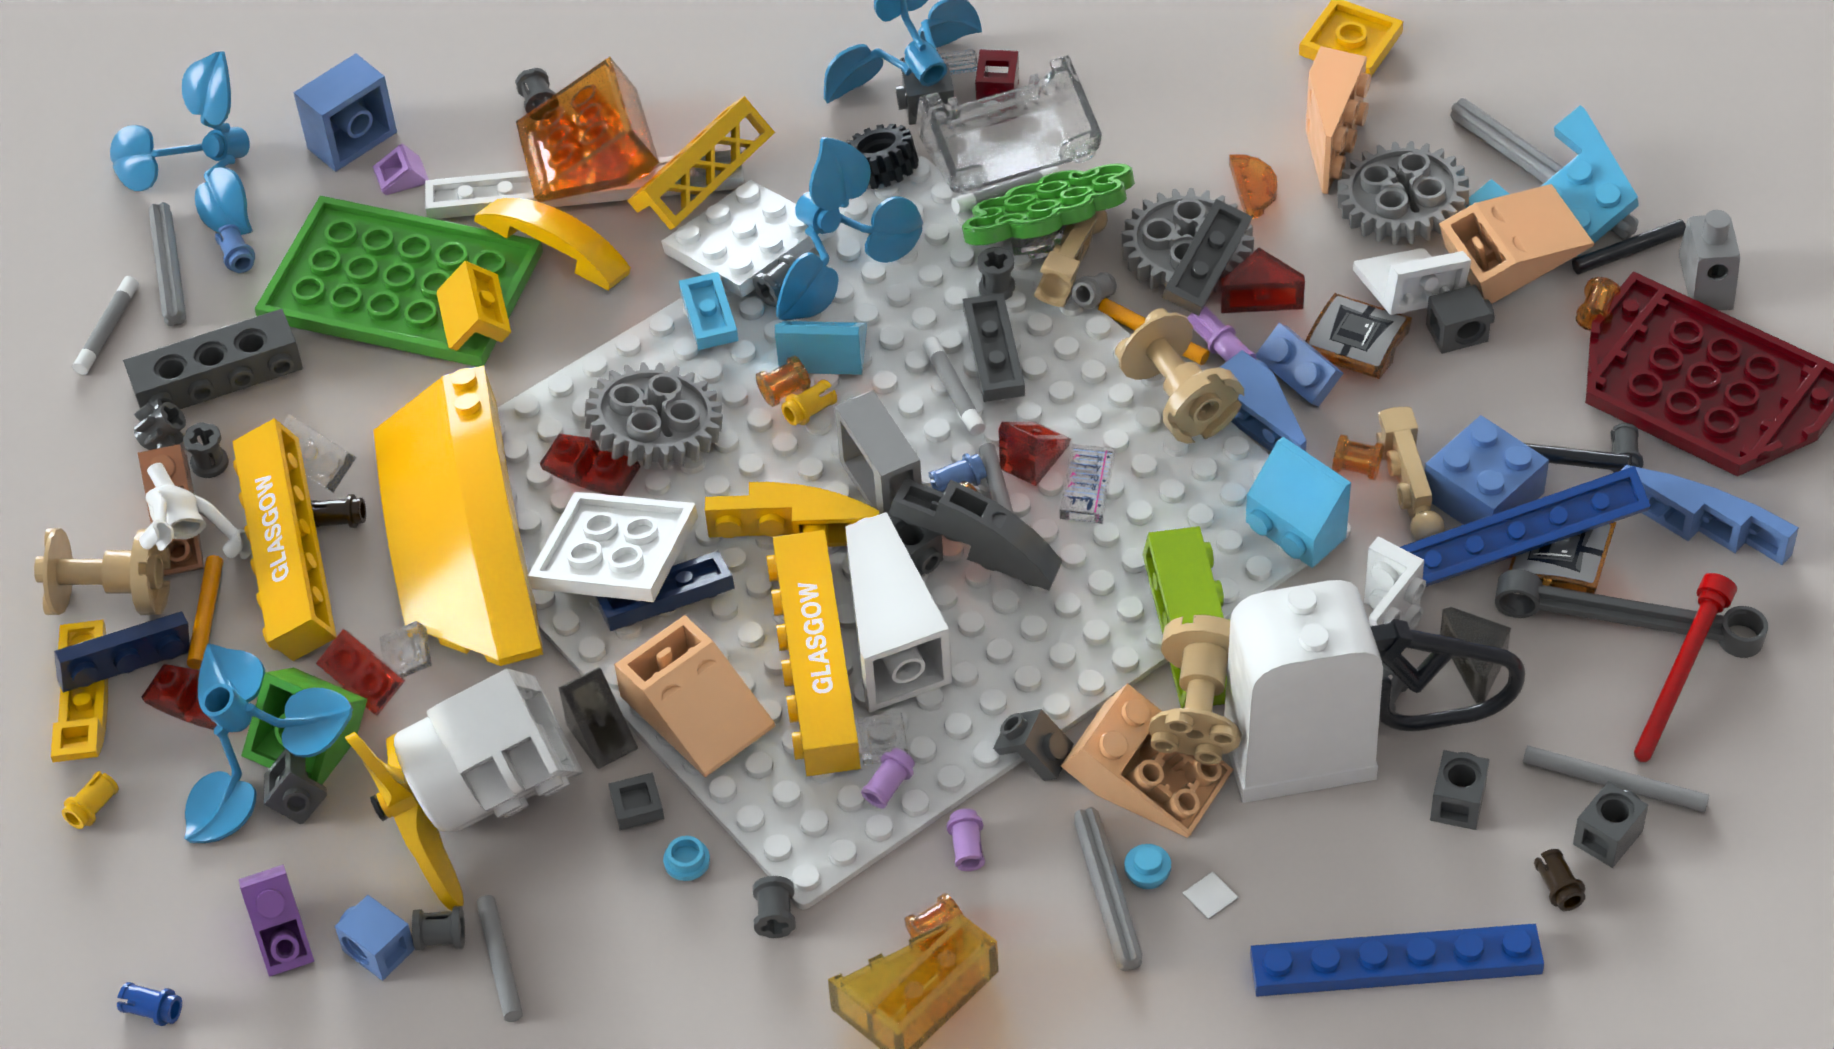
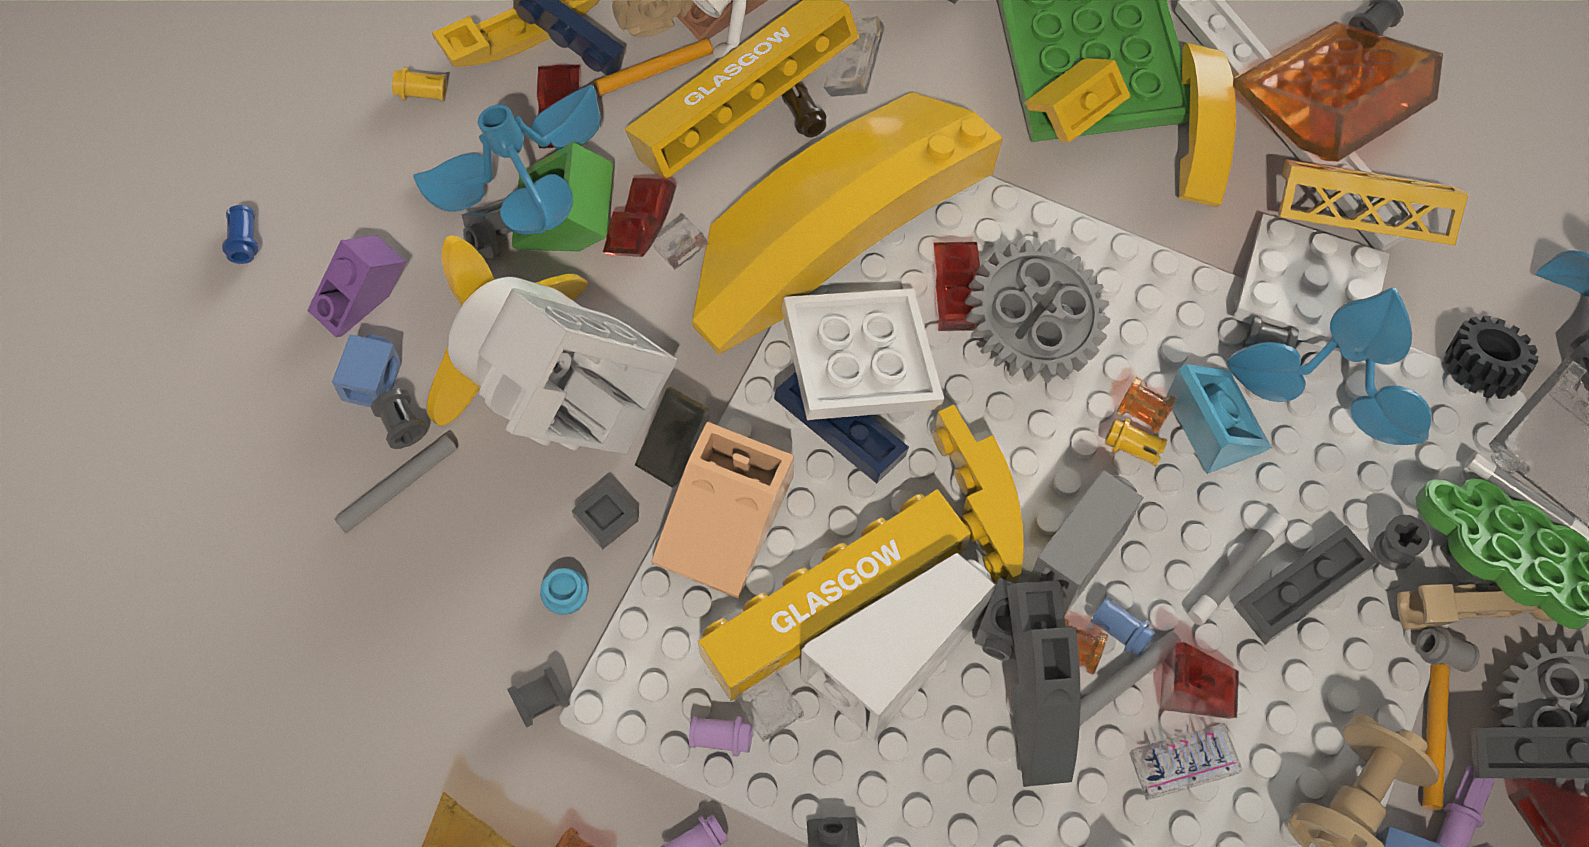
camera: 60 degrees right, 15 degrees up
(708, 311) = (1195, 296): medium azure plate -> none

